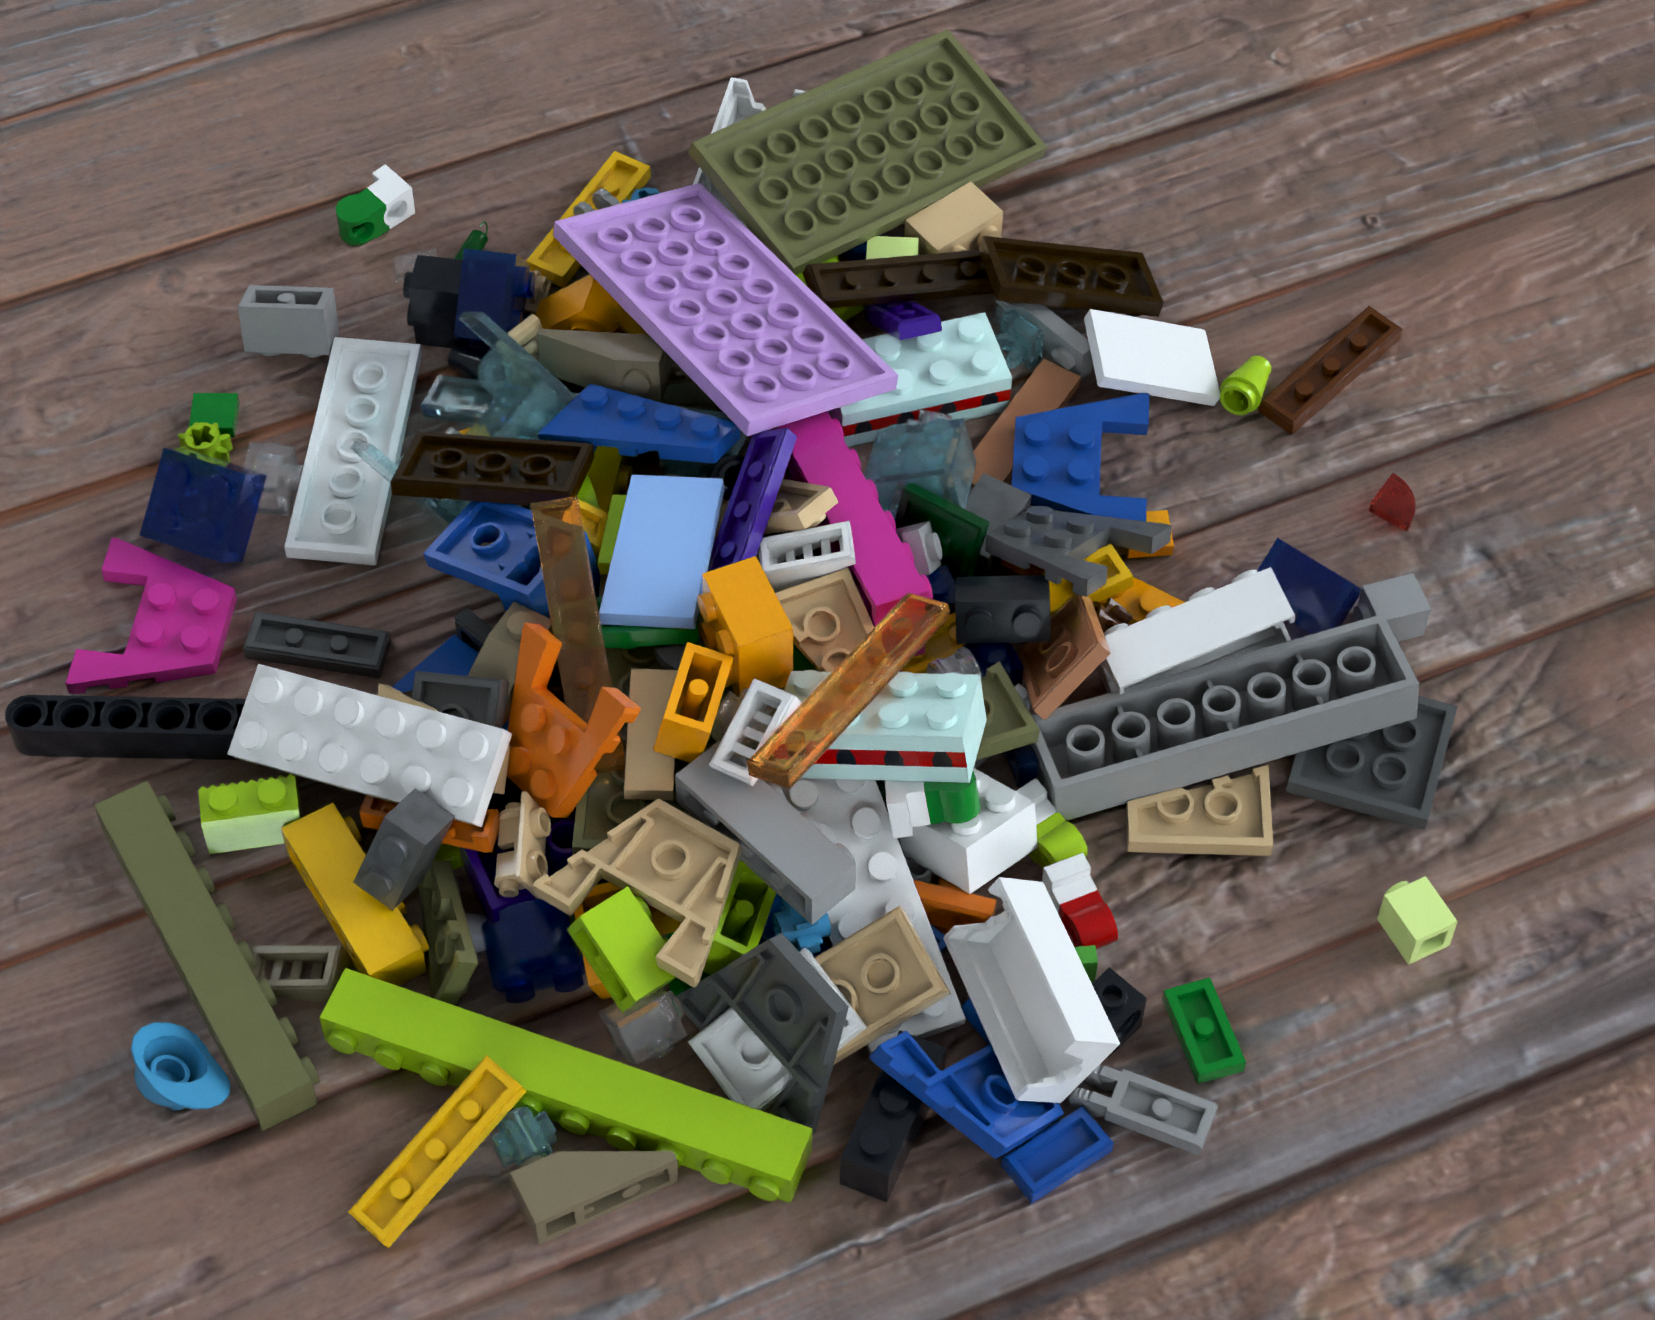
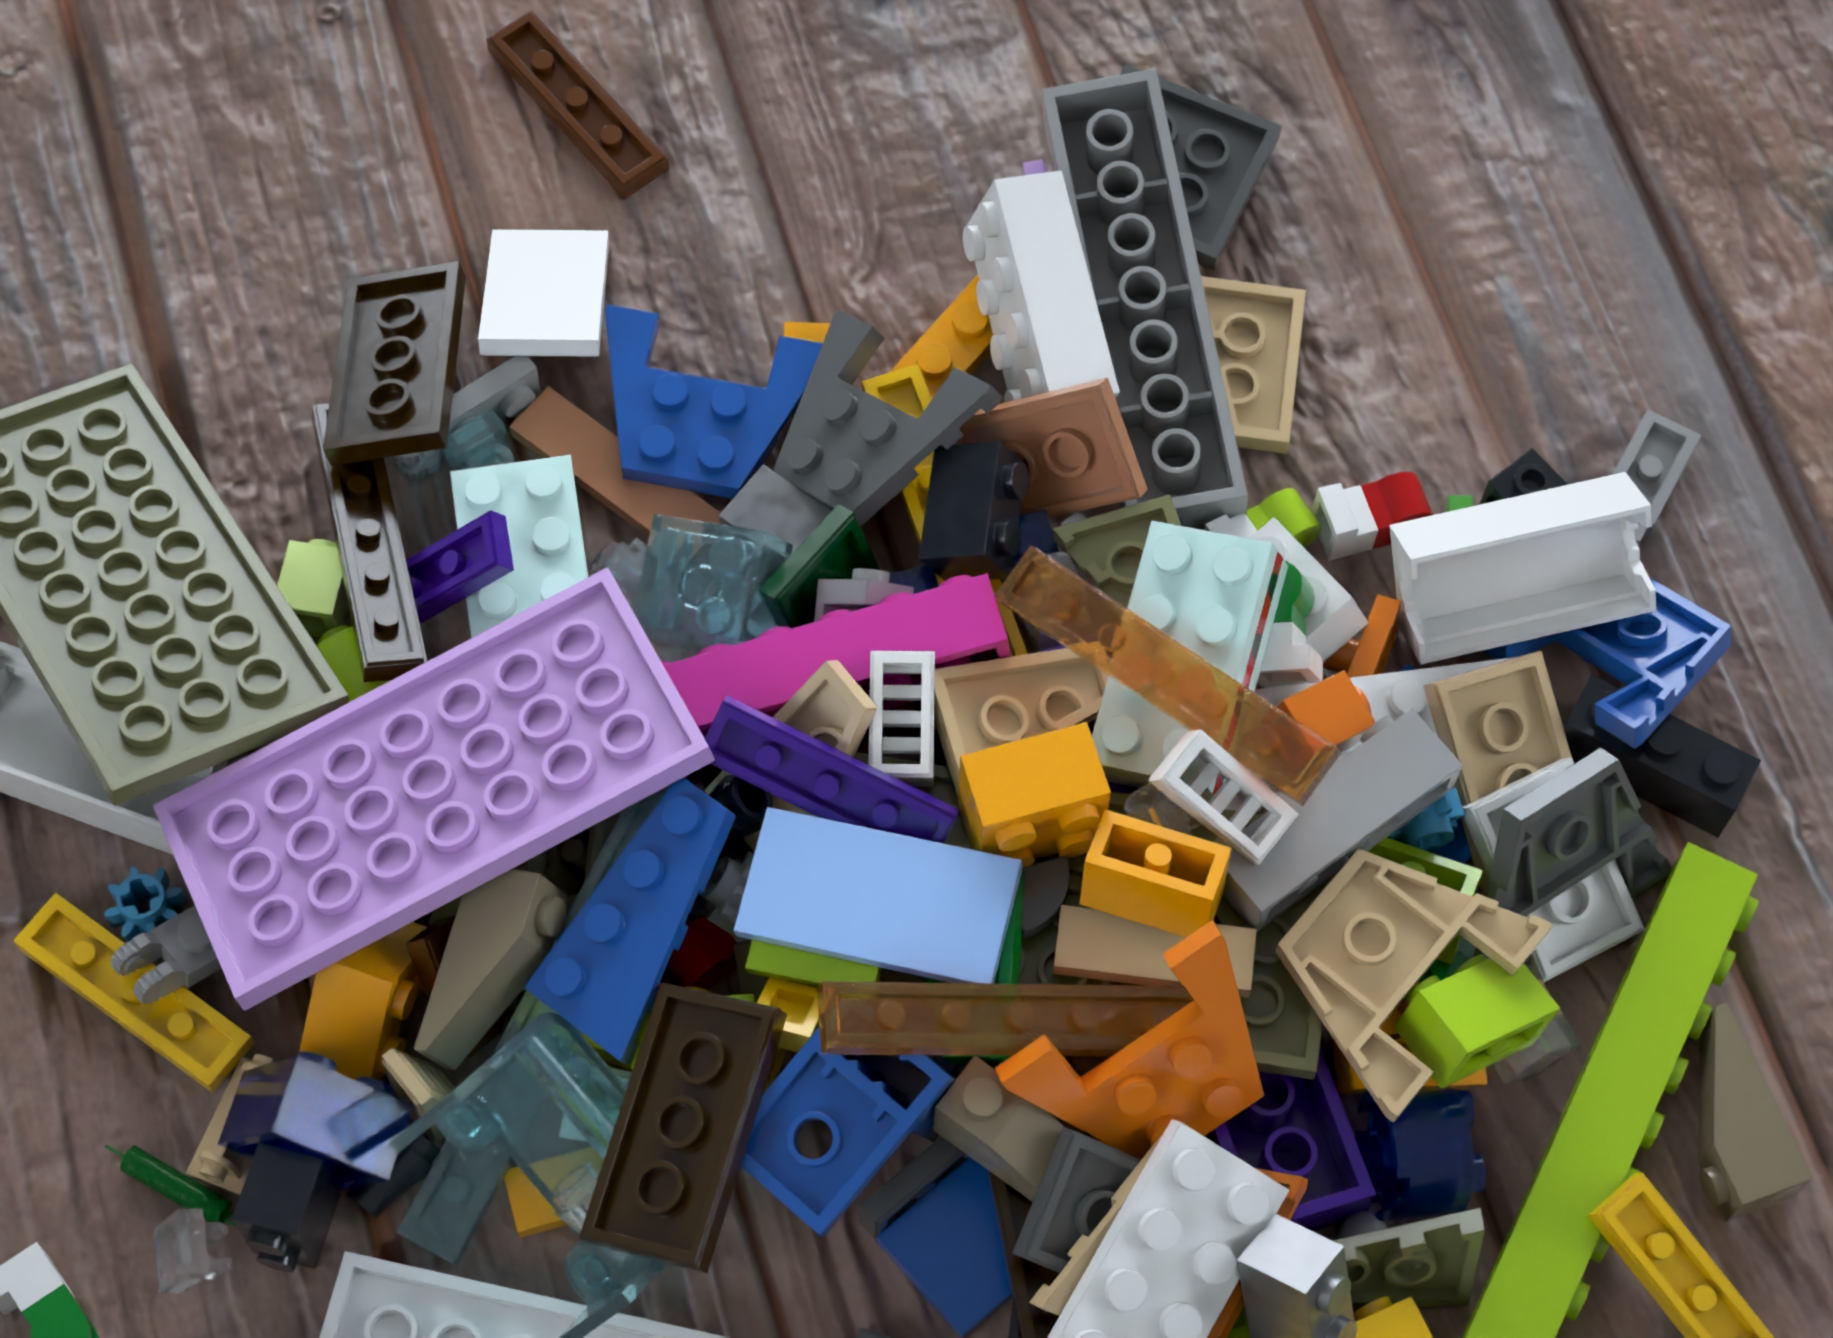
camera: 85 degrees left, 10 degrees up
(524, 829) = (1328, 1142): tan hinge -> none
(524, 1136) = (1683, 1185): clear light blue gear -> none
(853, 822) = (1332, 710): none -> orange brick
(955, 222) = (263, 496): tan brick -> none
(1057, 1154) = (1686, 571): blue tile -> none
(1203, 1030) = (1543, 409): green plate -> none
(1245, 386) = (598, 198): lime cone -> none
(1313, 590) = (939, 185): clear blue brick -> none
(1395, 503) = (801, 73): clear red tile -> none
(1399, 601) = (975, 103): light grey brick -> none
(1416, 919) = (1411, 165): yellowish green brick -> none

